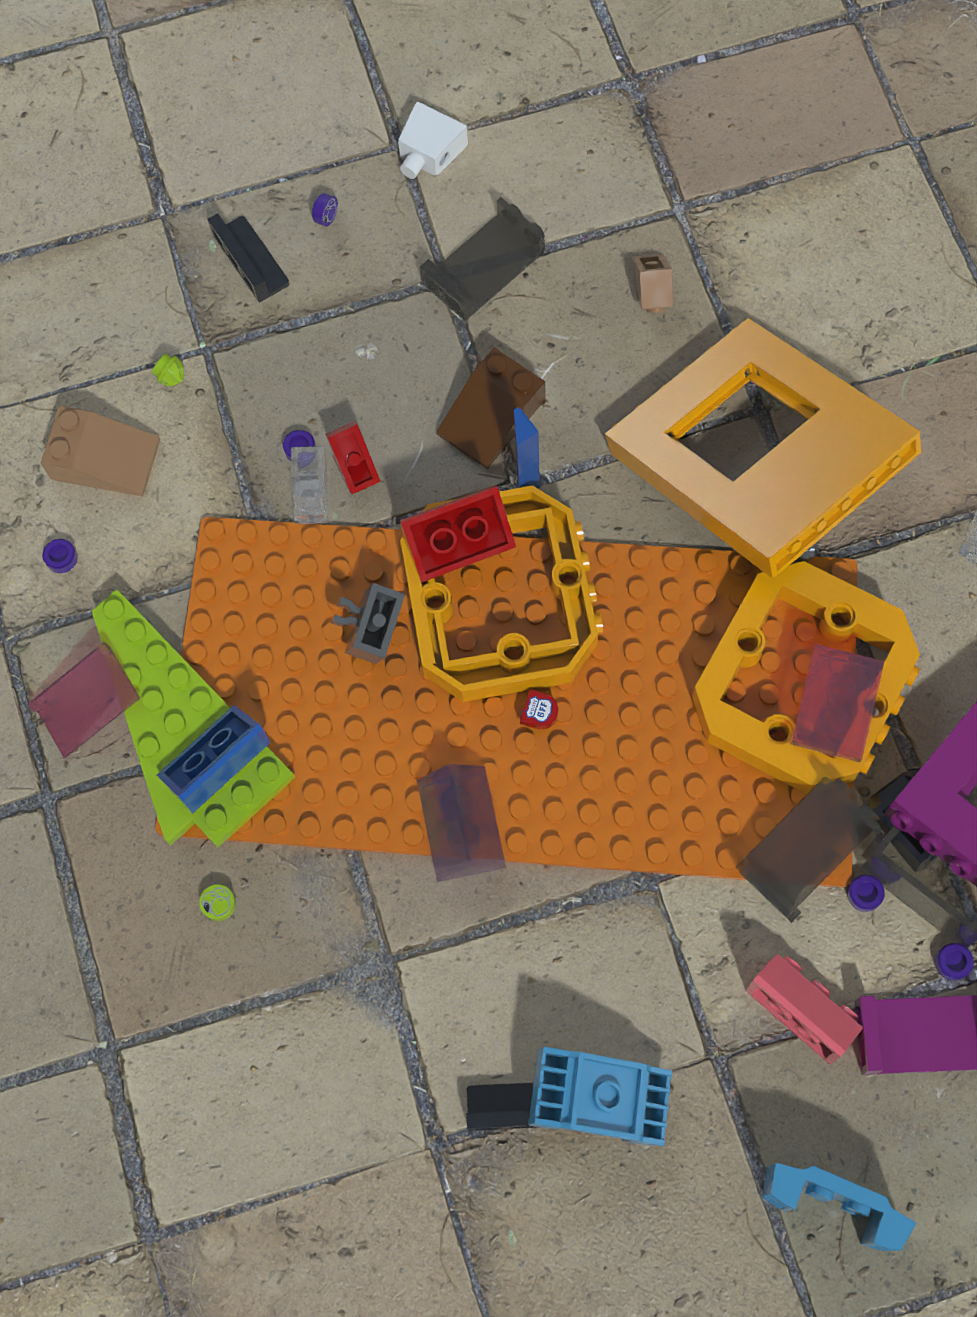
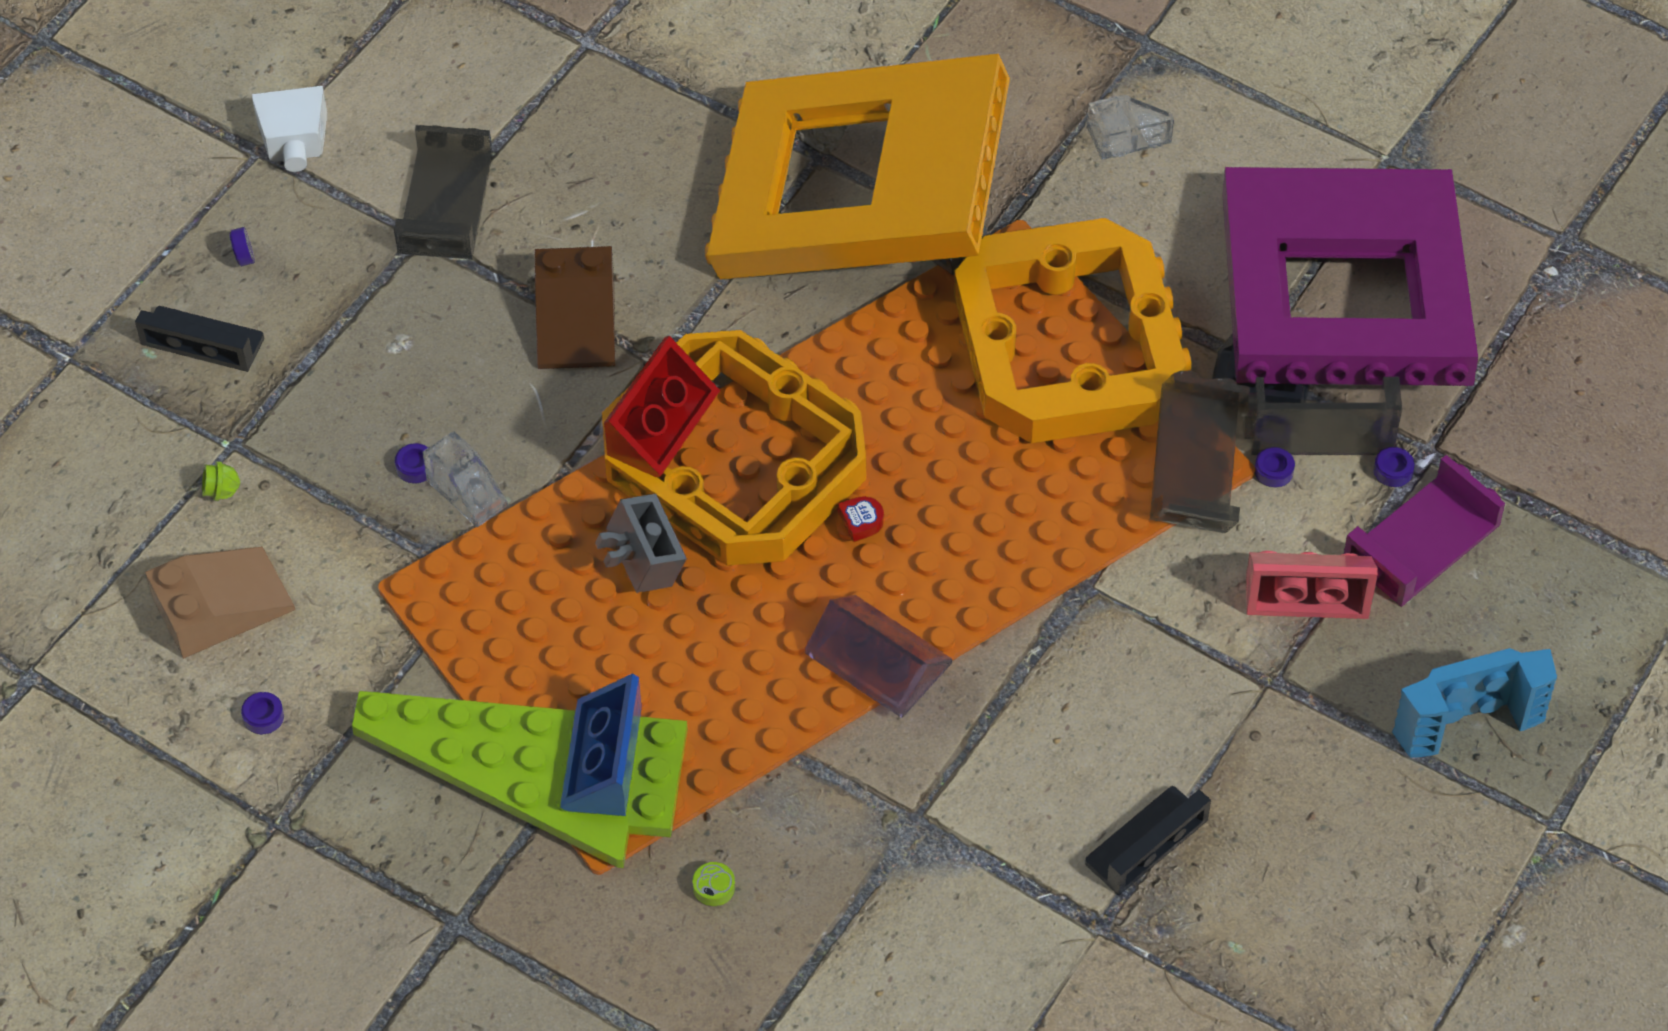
camera: 45 degrees left, 15 degrees down
(85, 699) = (418, 806): clear pink piece -> none
(352, 457) = (484, 431): red slope -> none
(526, 450) = (657, 298): blue slope -> none
(600, 1096) = (1205, 760): dark azure plate -> none
(653, 282) = (627, 110): medium nougat slope -> none
(837, 703) = (1119, 321): clear pink tile -> none

